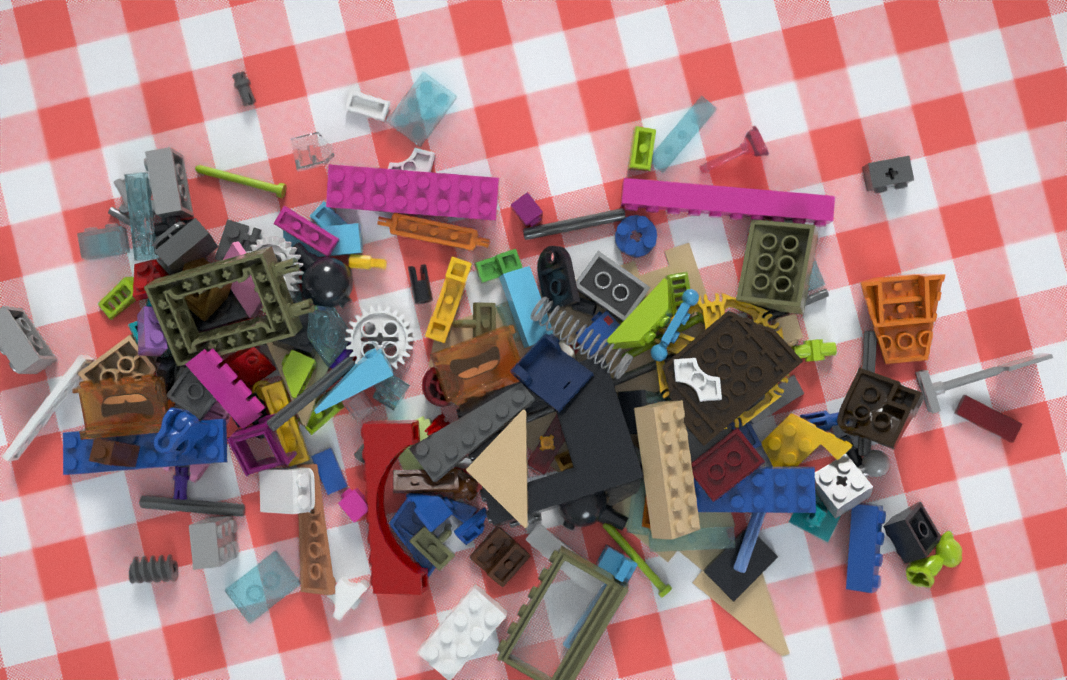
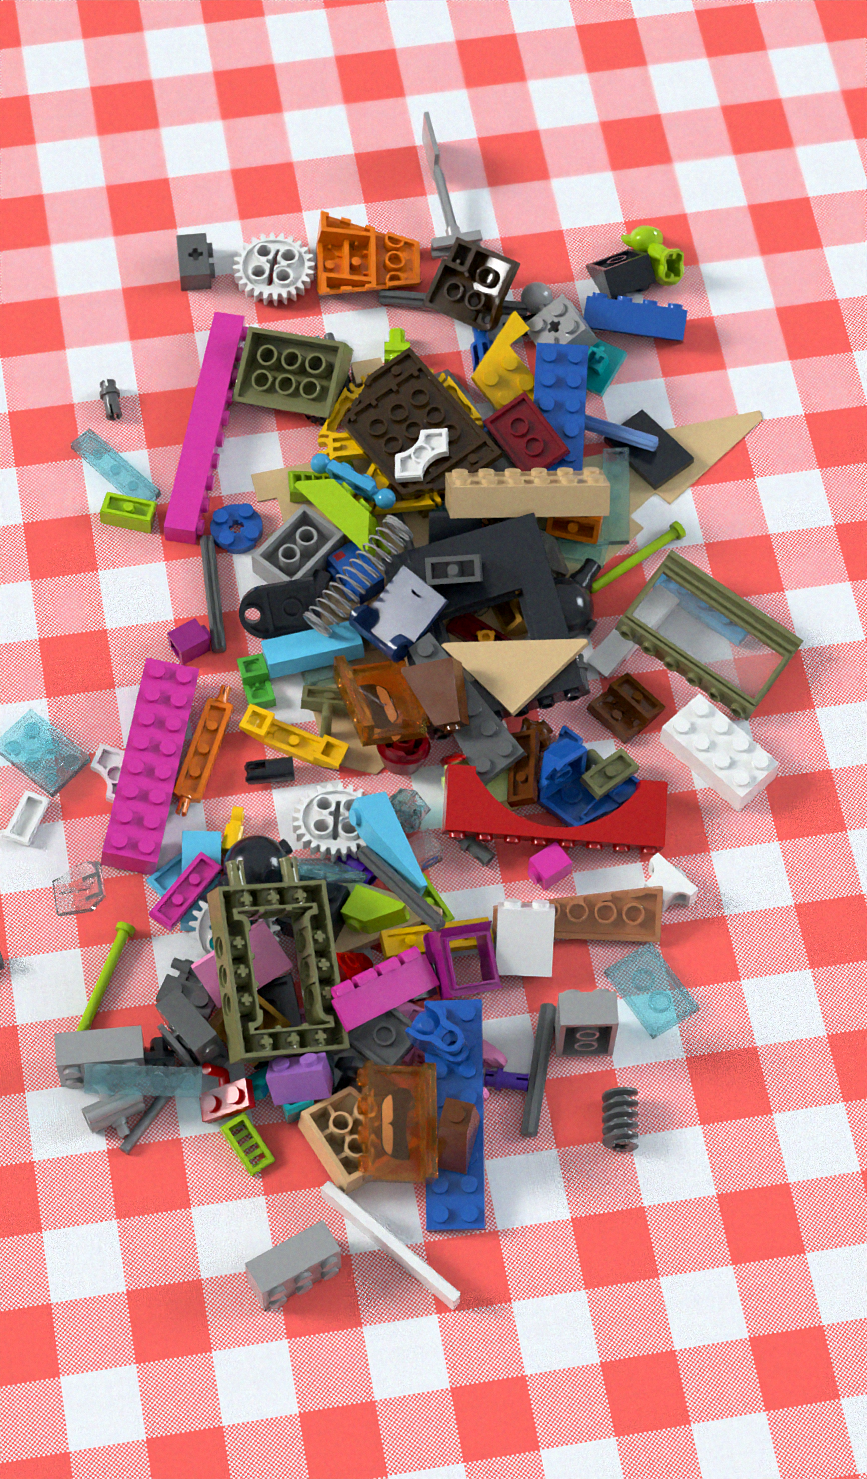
camera: 90 degrees left, 25 degrees down
(103, 242) = (168, 1156): clear light blue brick -> none
(329, 471) = (489, 897): blue tile -> none
(472, 527) = (586, 731): blue tile -> none
(476, 411) = (441, 692): none -> reddish brown slope
(583, 414) = (453, 569): none -> dark grey brick
(616, 564) = (643, 566): dark azure brick -> none
(746, 122) = (110, 396): none -> dark grey pin
(752, 144) = (139, 389): clear pink piece -> none
(886, 259) = (290, 275): none -> white gear
(988, 418) = (493, 192): dark red tile -> none

